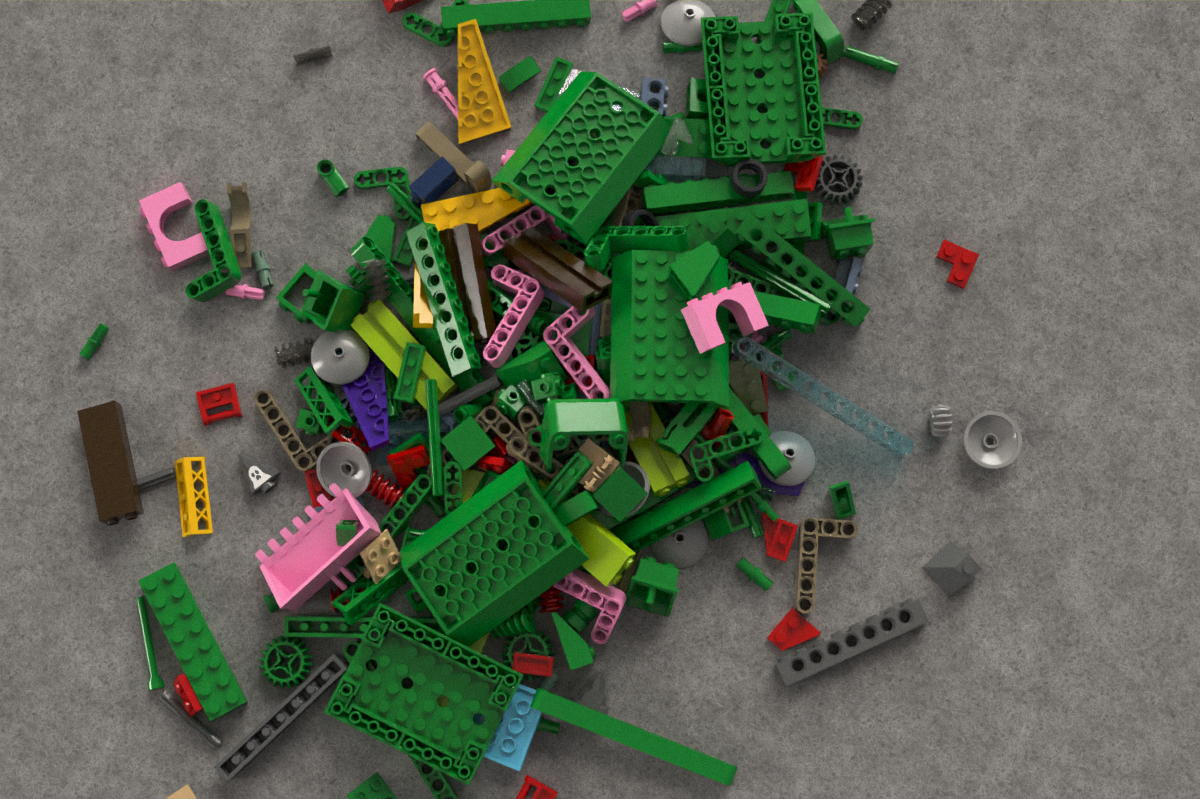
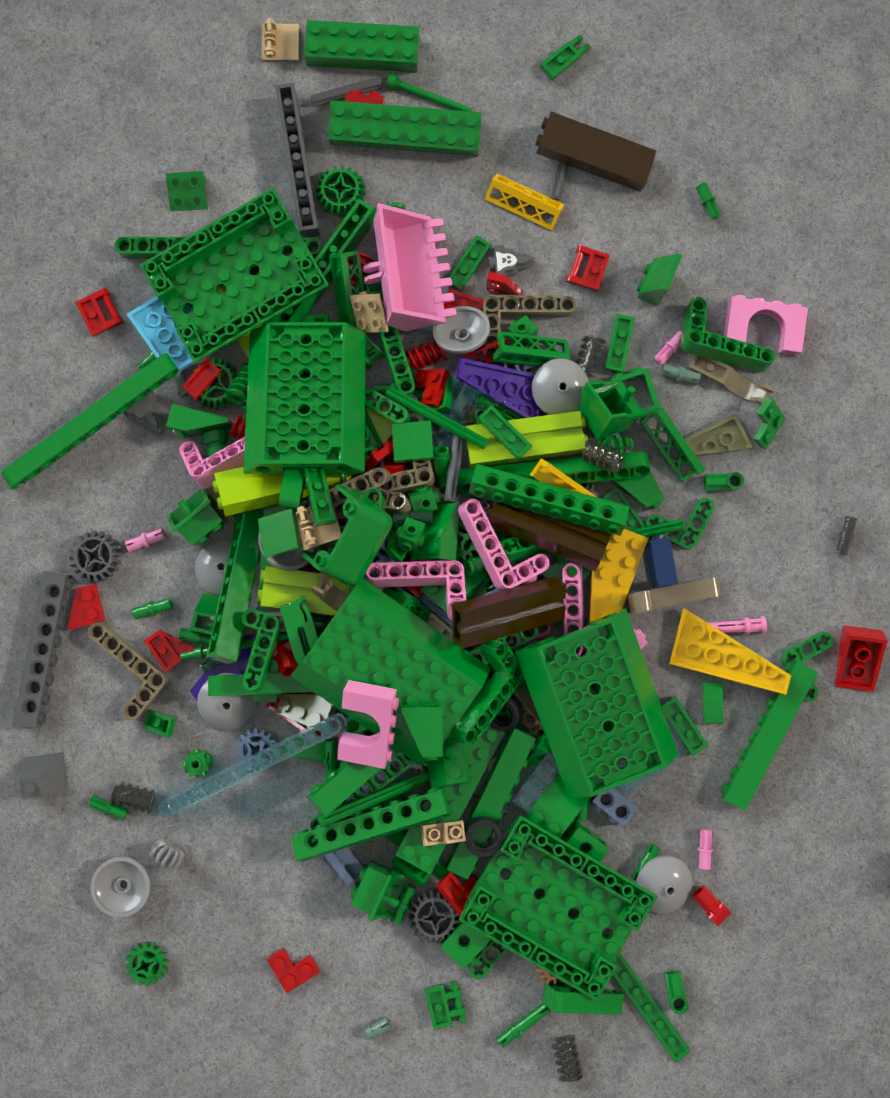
camera: 125 degrees right, 5 degrees up
(40, 547) = (564, 58): none -> green hinge
(139, 732) = (361, 46): none -> green brick
(191, 335) = (658, 278): none -> green slope
(253, 171) = (772, 421): none -> green plate
(268, 335) = (619, 343): none -> green plate
(278, 508) = (469, 262): none -> green tile
(283, 468) = (501, 283): none -> red wing
(296, 204) = (720, 438): none -> olive wing
(323, 231) = (677, 440): none -> green fence
(346, 531) = (407, 298): green slope -> none
(677, 132) = (564, 803): clear slope -> none
(701, 620) = (145, 540): none -> bright pink pin
(743, 643) = (100, 550): none -> dark grey gear
(768, 209) = (443, 833): none -> tan slope
(798, 406) = (250, 742): none -> sand blue gear
(836, 212) = (404, 904): none -> green pin
(845, 449) = (204, 759): none -> green brick
(847, 136) = (465, 953): none -> green brick
(902, 133) = (439, 1008): none -> green plate
(915, 480) = (133, 797): none -> clear smoke piece
(939, 496) = (106, 807): none -> green axle
(953, 166) = (377, 1029): none -> sand green pin
(1043, 381) = (149, 972): none -> green gear

